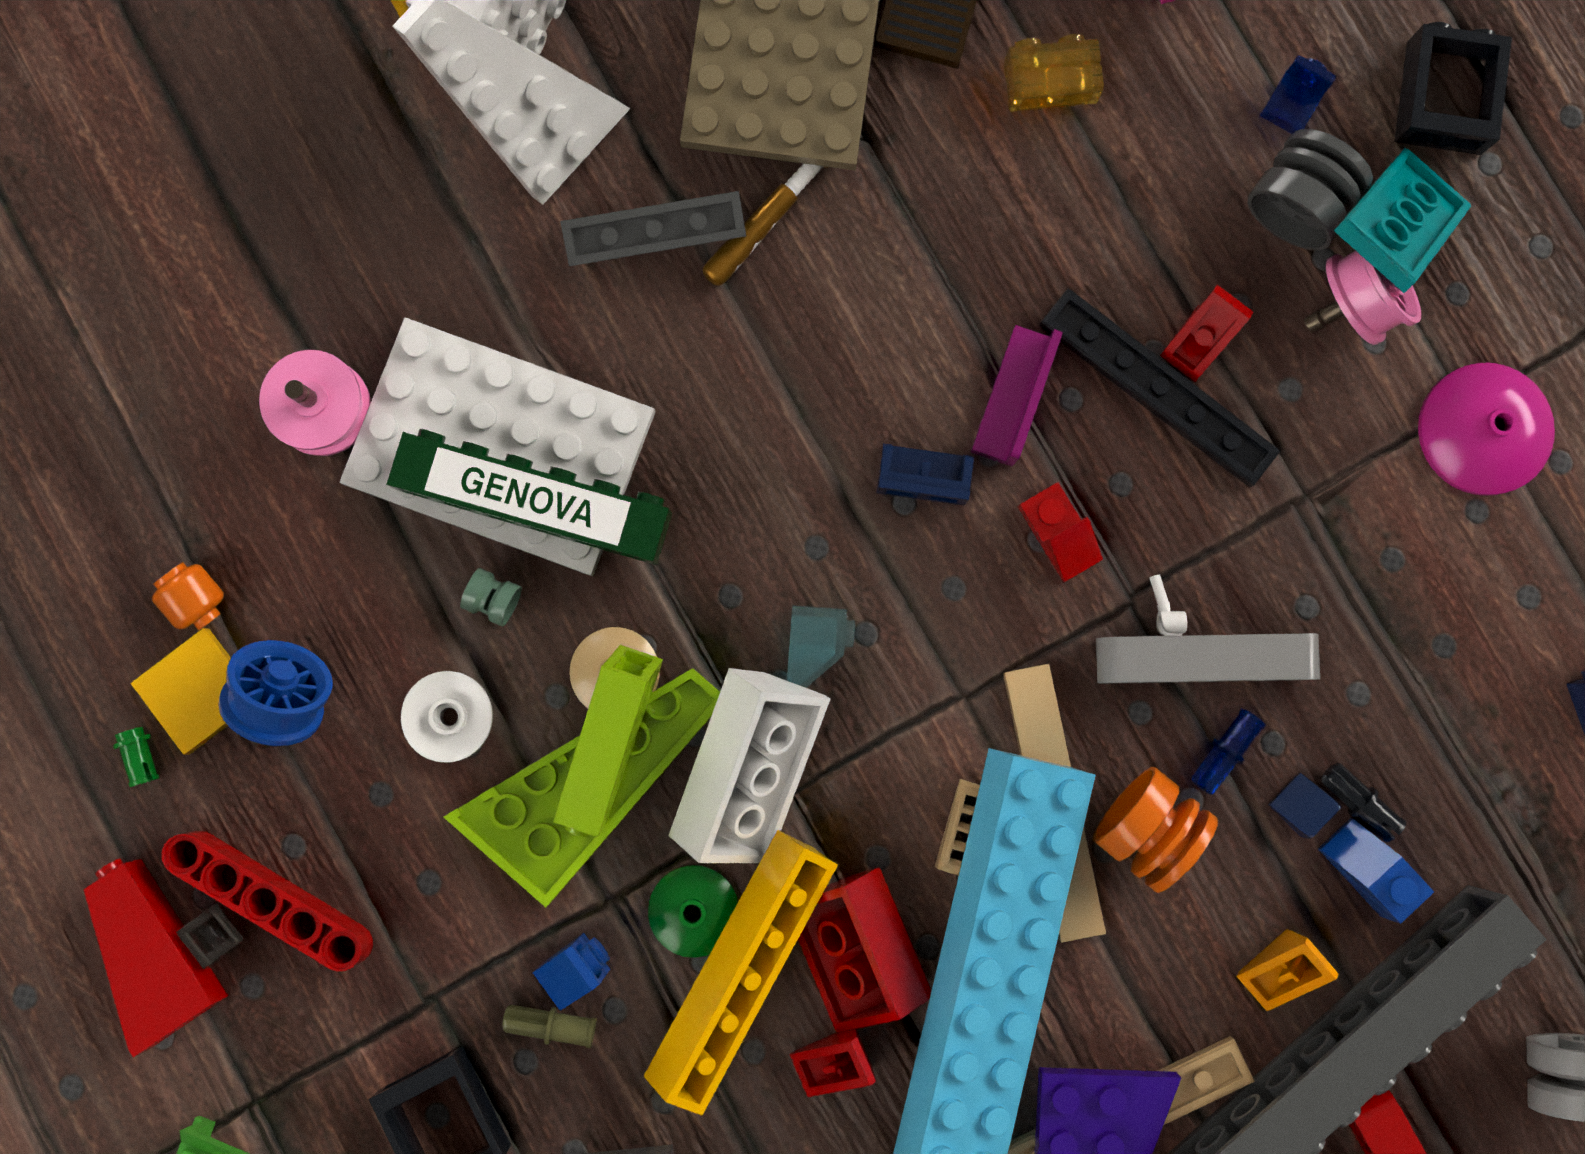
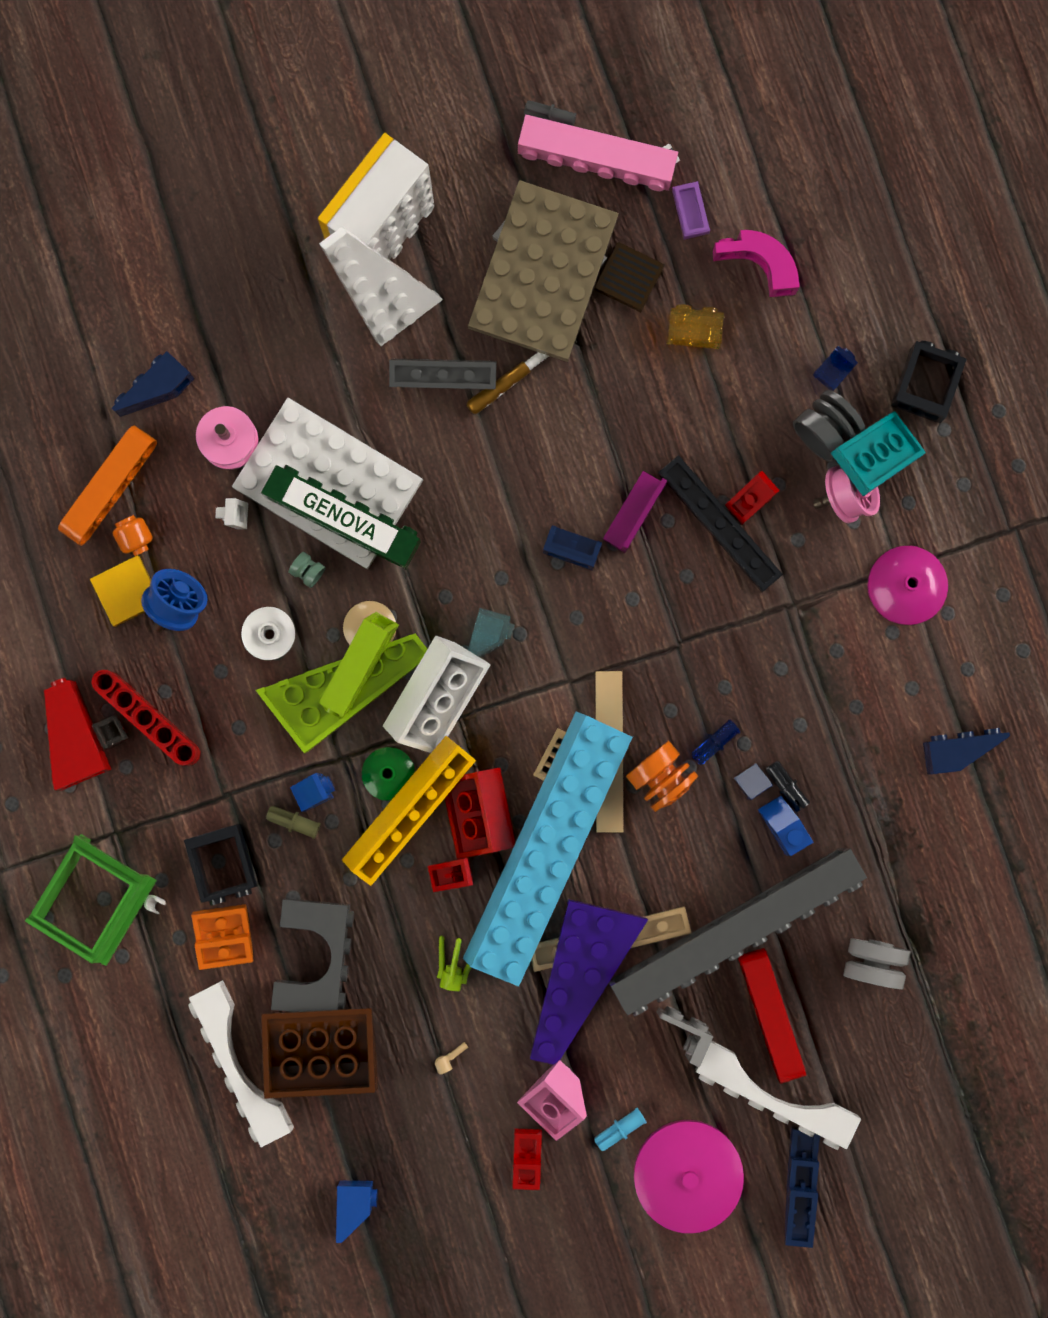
camera: 10 degrees right, 0 degrees up
(131, 521) = (107, 485): none -> orange beam
(136, 756) = (85, 621): green pin -> none
(186, 336) = (159, 384): none -> dark blue slope
(351, 527) = (234, 513): none -> white tile
(1061, 532) = (645, 596): red slope -> none
(1168, 622) = (698, 661): white hand -> none
(1208, 658) = (714, 686): light grey beam -> none
(1286, 970) = (721, 873): light orange slope -> none

